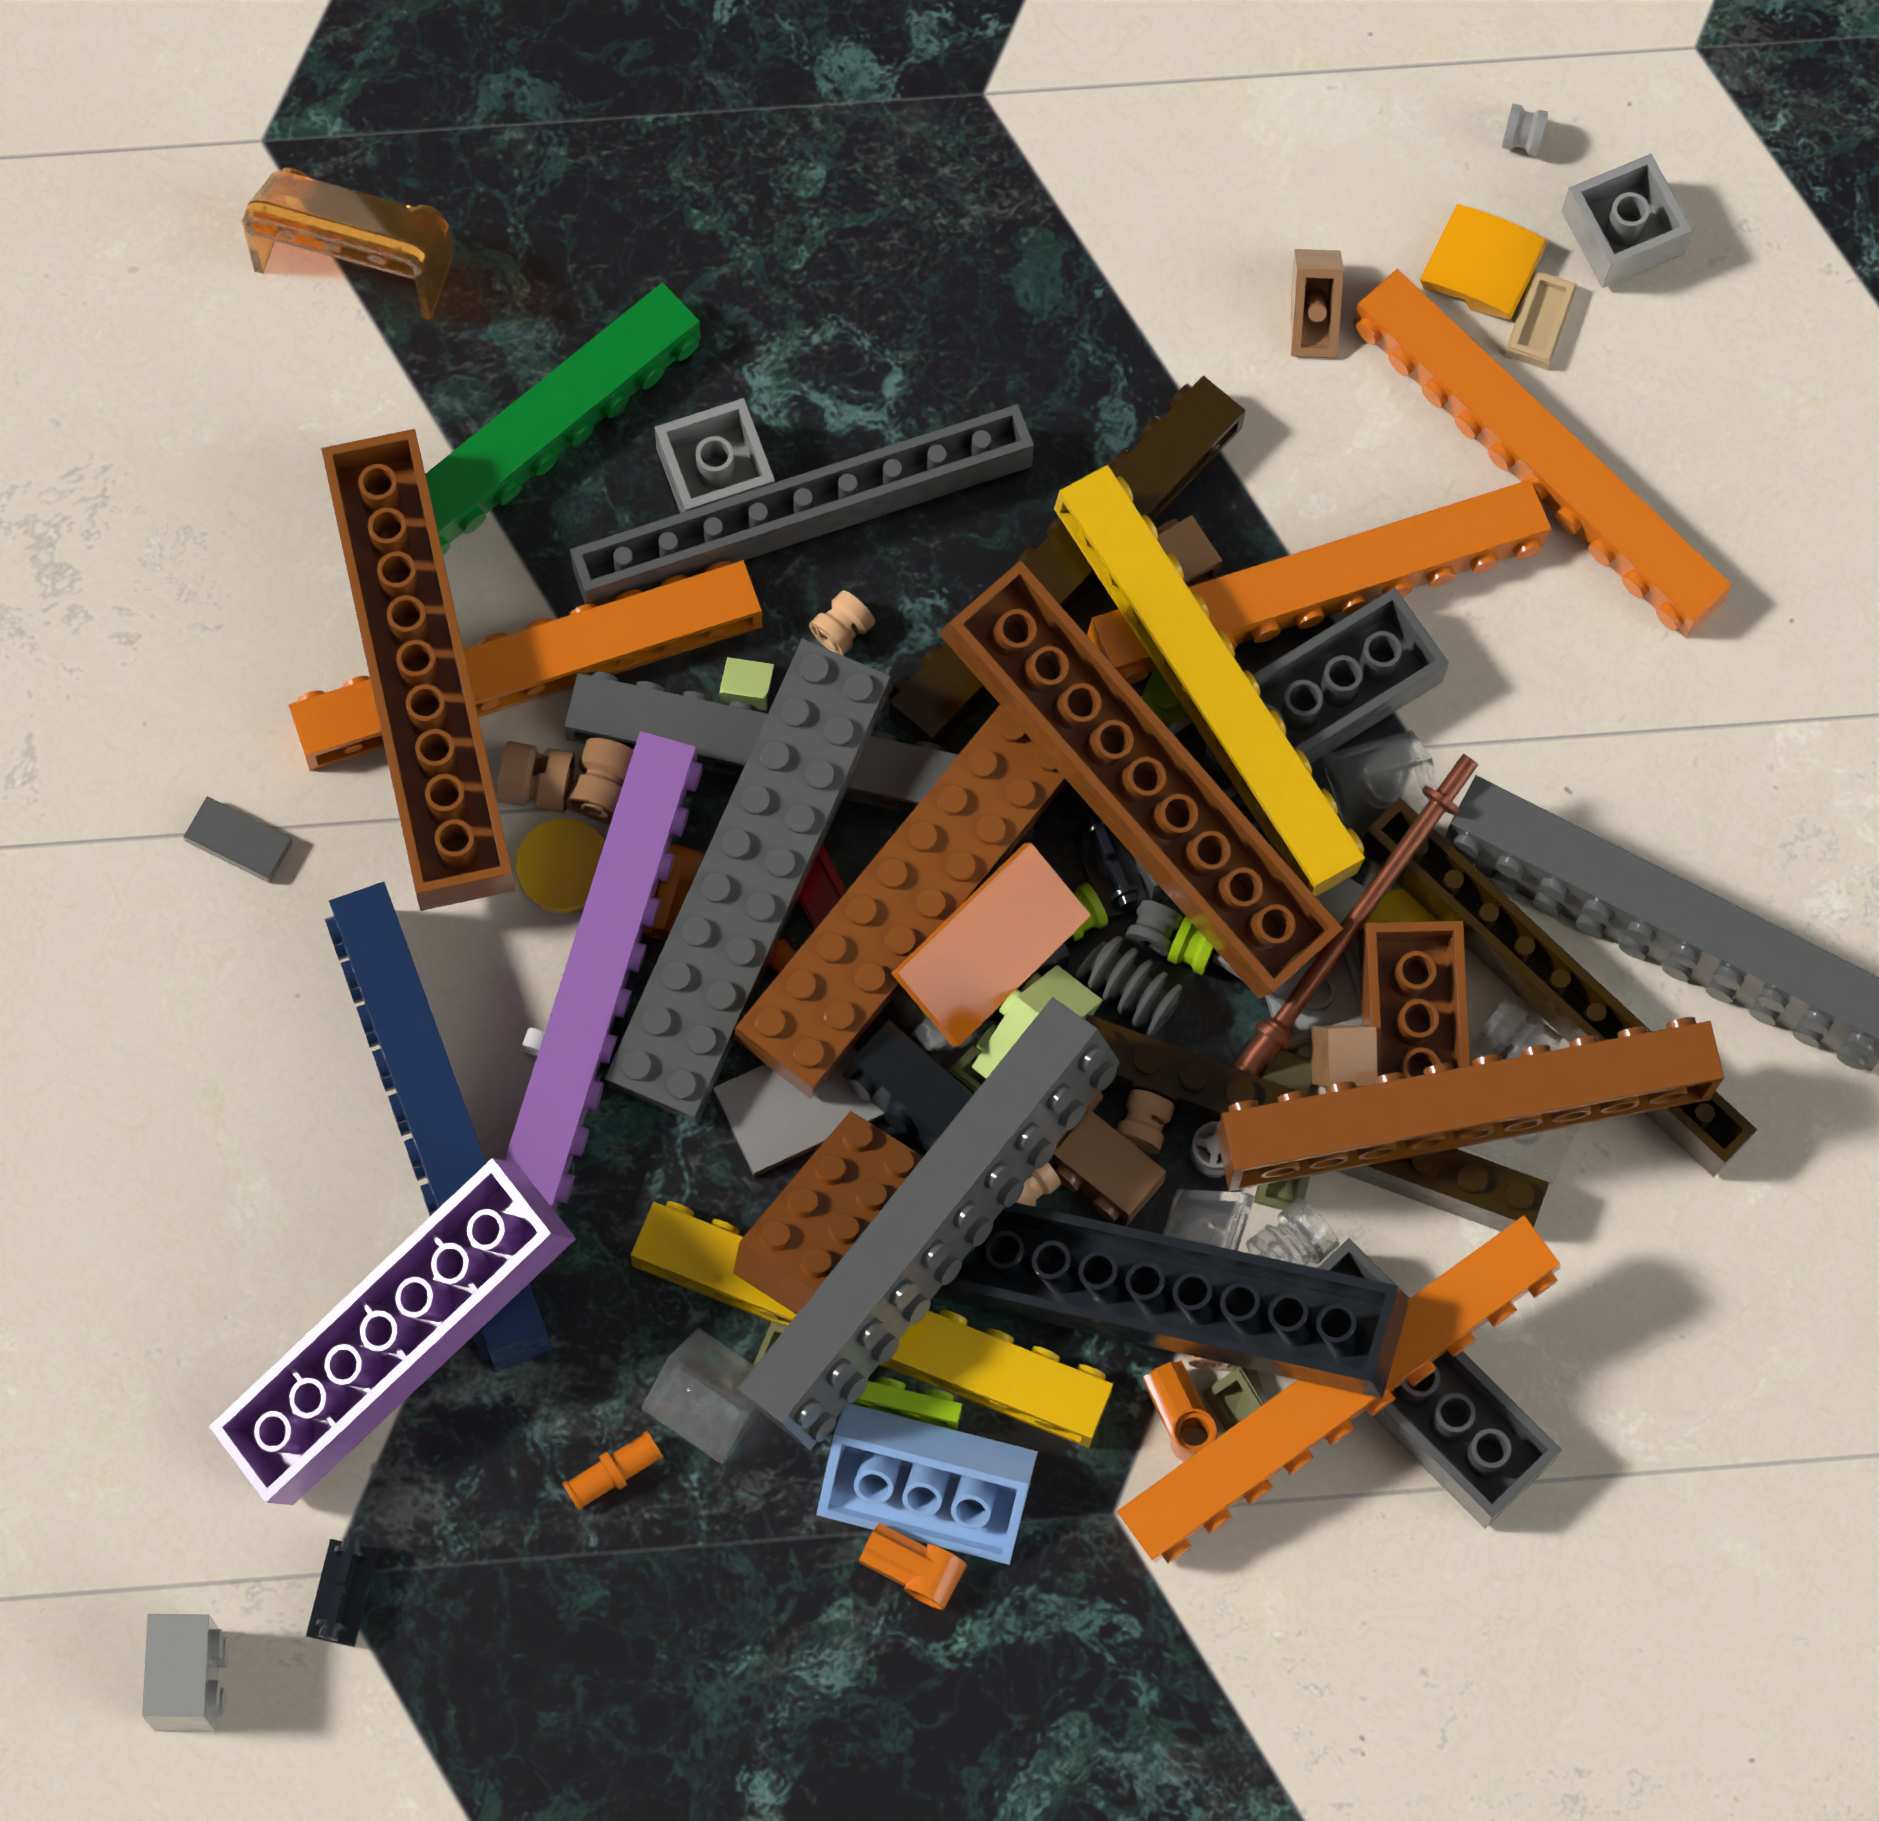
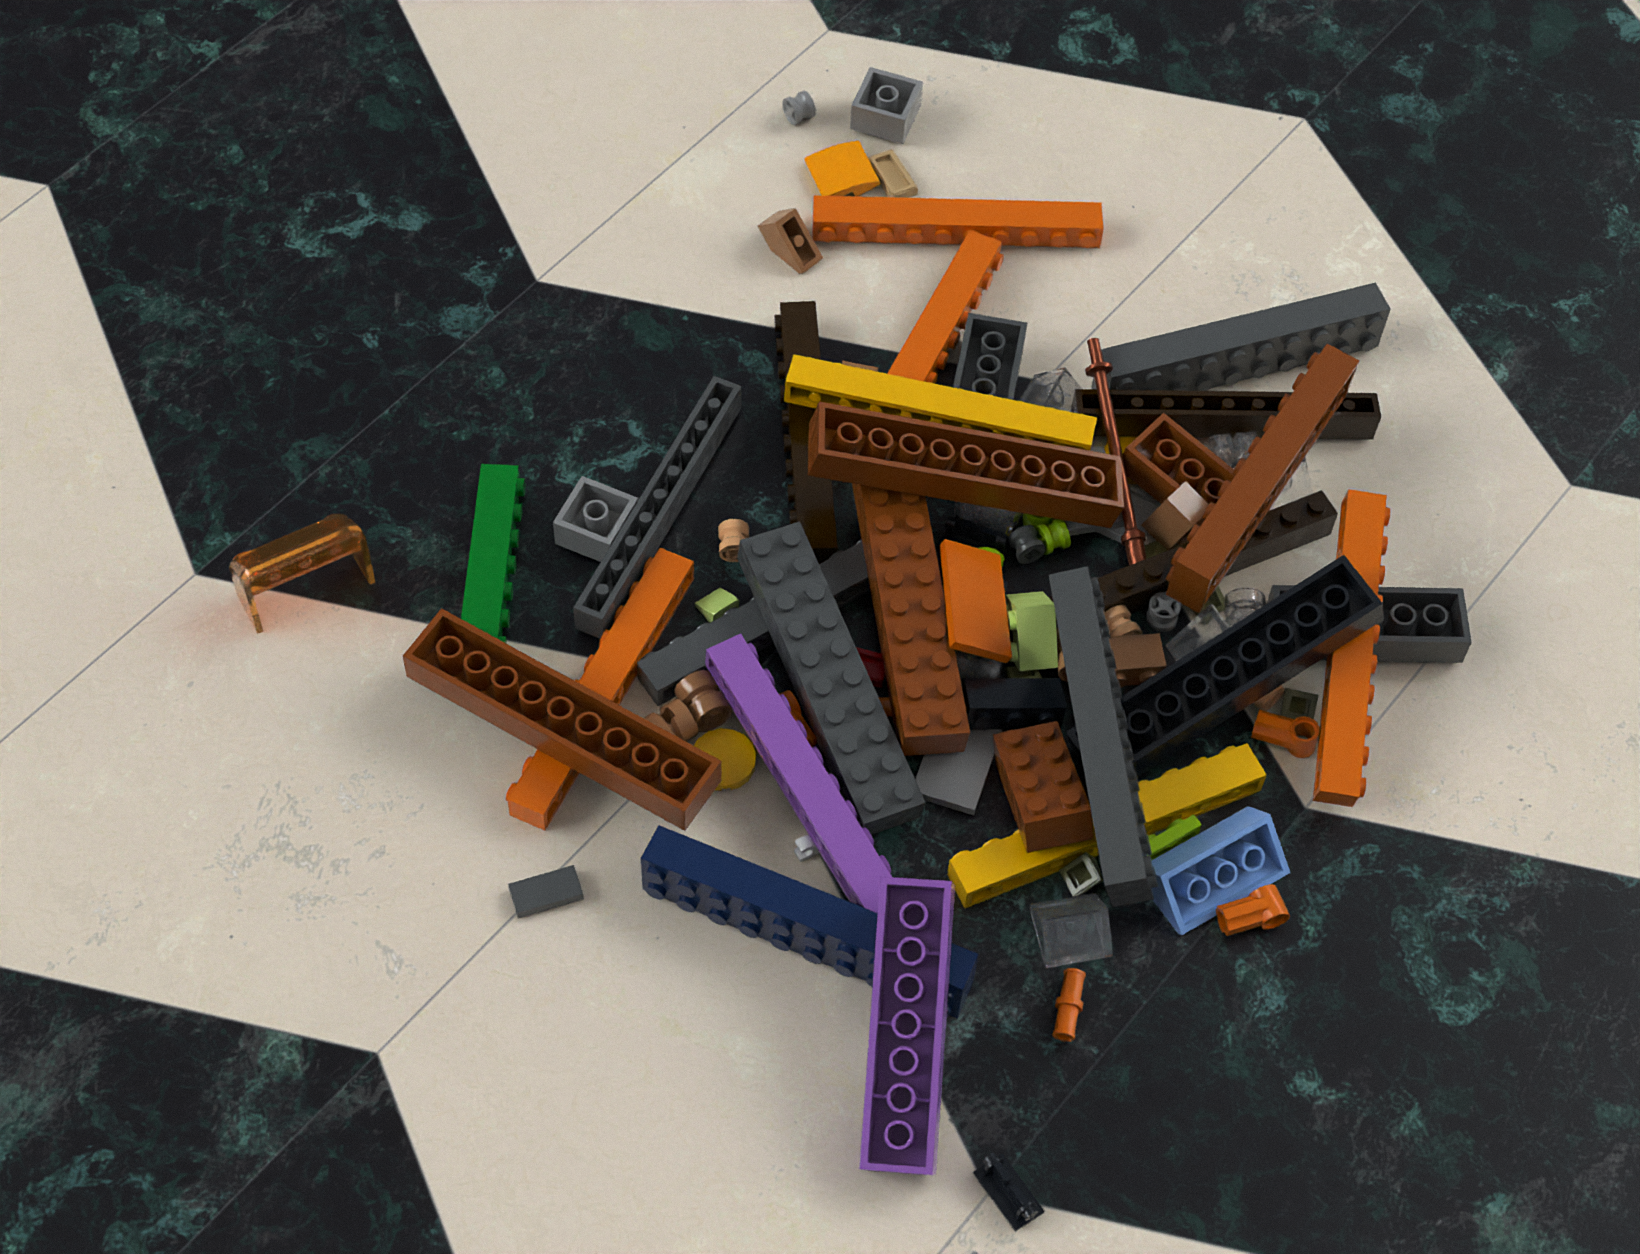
camera: 45 degrees left, 15 degrees down
(1130, 984) = (1037, 572): dark grey piece -> none

